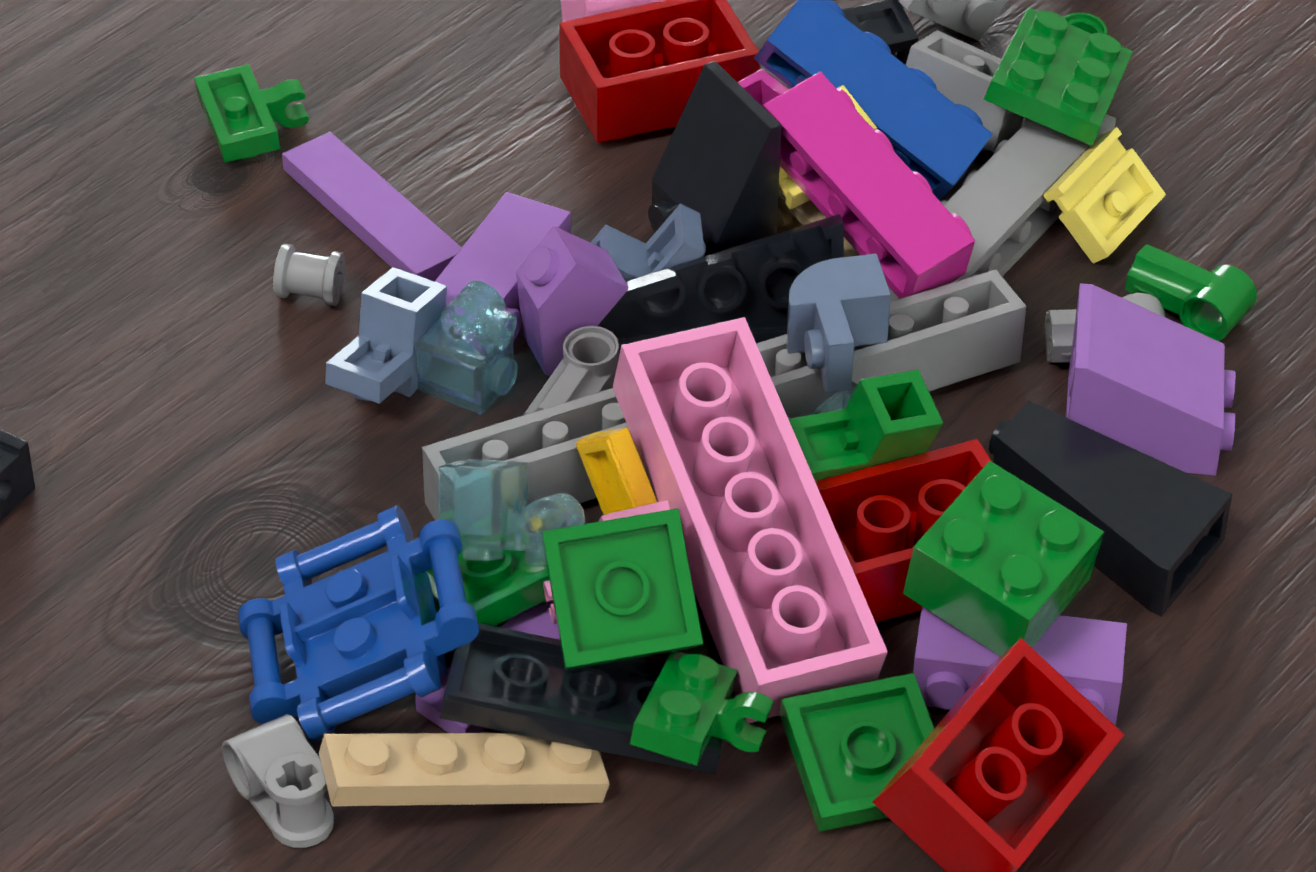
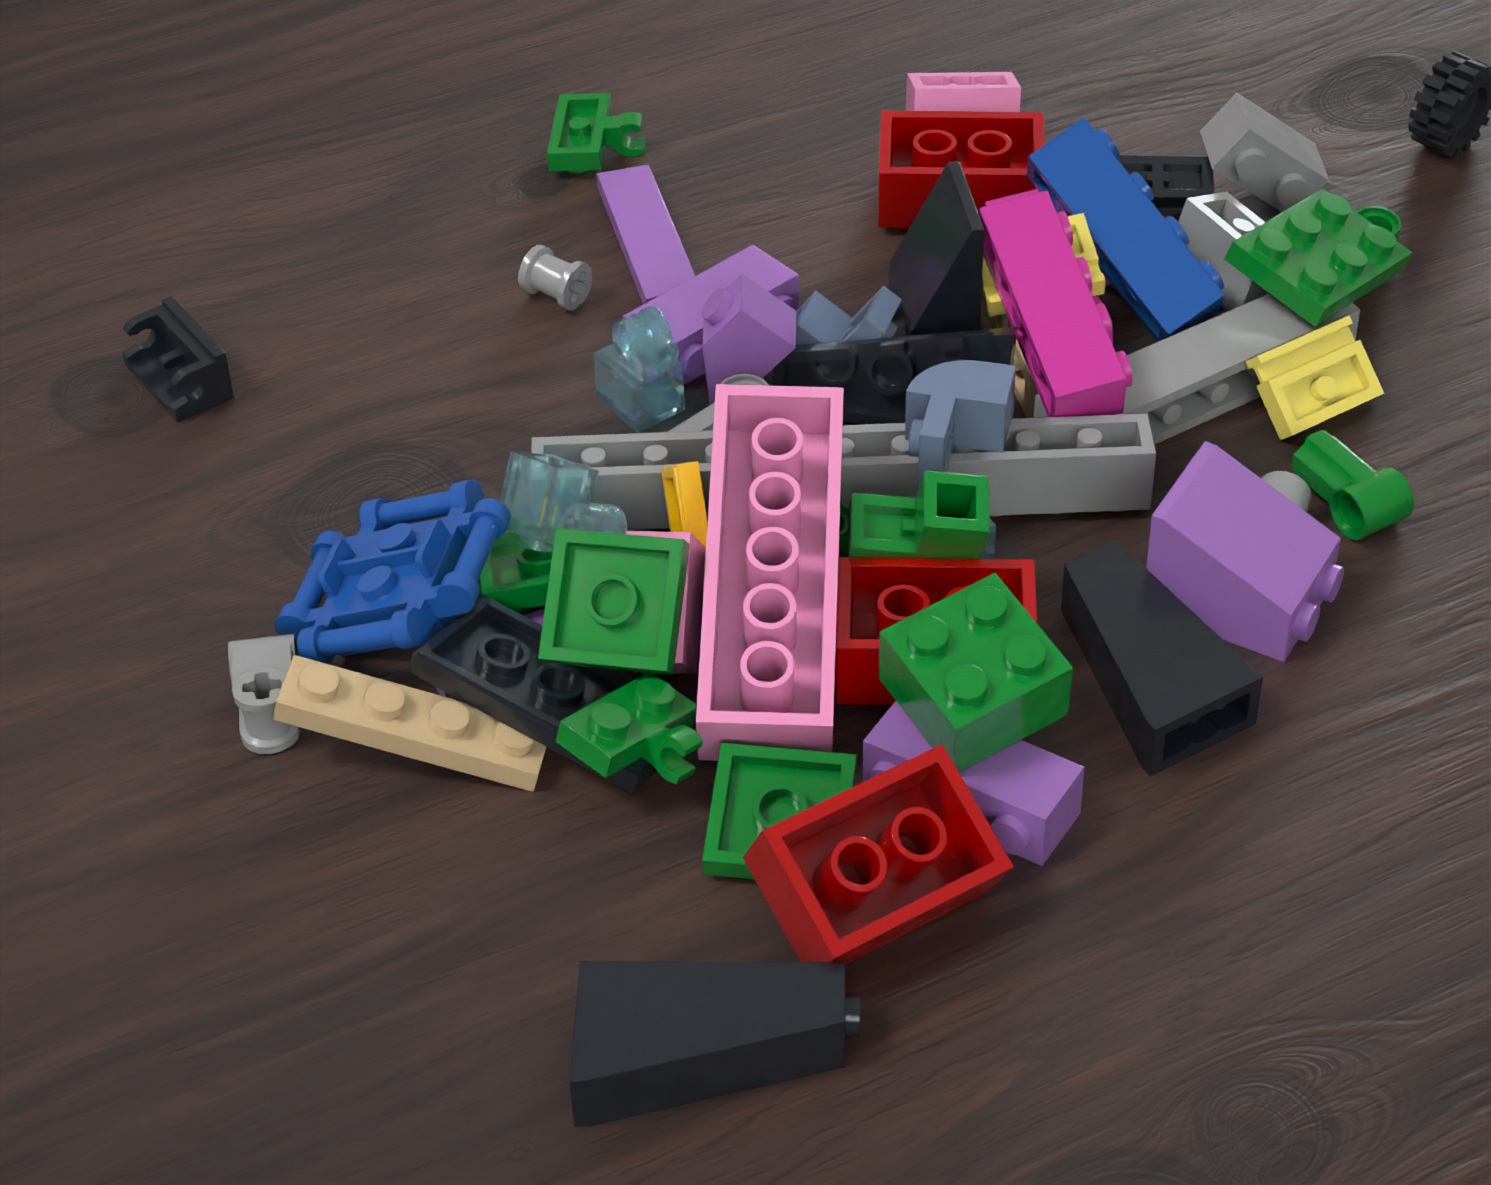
camera: 25 degrees right, 0 degrees up
(392, 320) = (567, 357): sand blue brick -> none

